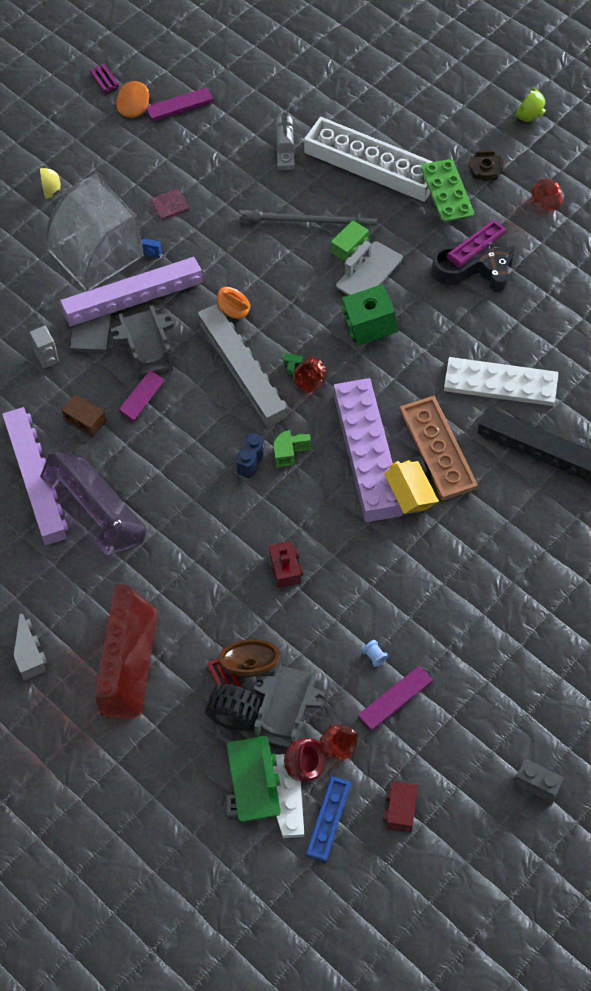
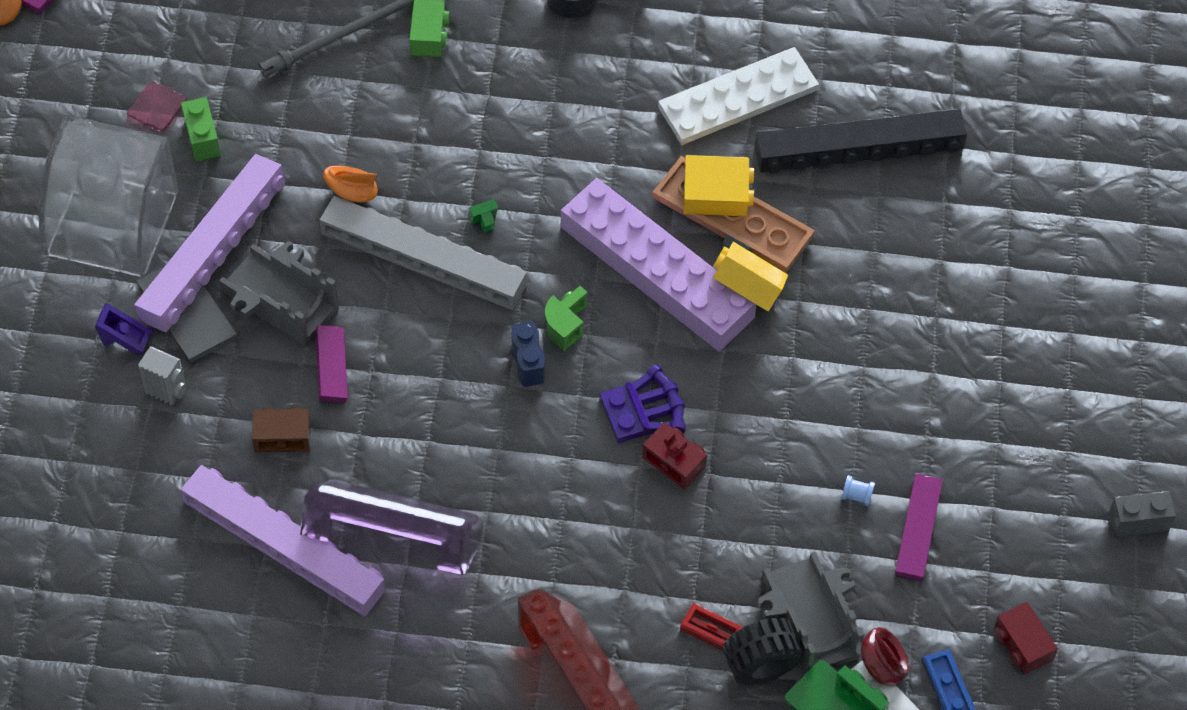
camera: 40 degrees left, 0 degrees up
(46, 310) = (122, 329): none -> dark purple slope
(151, 248) = (187, 174): blue plate -> none
(179, 228) = (200, 129): none -> bright green brick
(249, 658) = (729, 585): reddish brown dish -> none
(282, 519) = (626, 409): none -> dark purple plate
(310, 374) = (520, 216): clear red hair -> none
(338, 742) = (902, 613): clear red hair -> none
(368, 267) = (478, 52): light grey bracket -> none
(369, 315) = (533, 102): green brick -> none
(437, 424) = (717, 185): none -> yellow brick

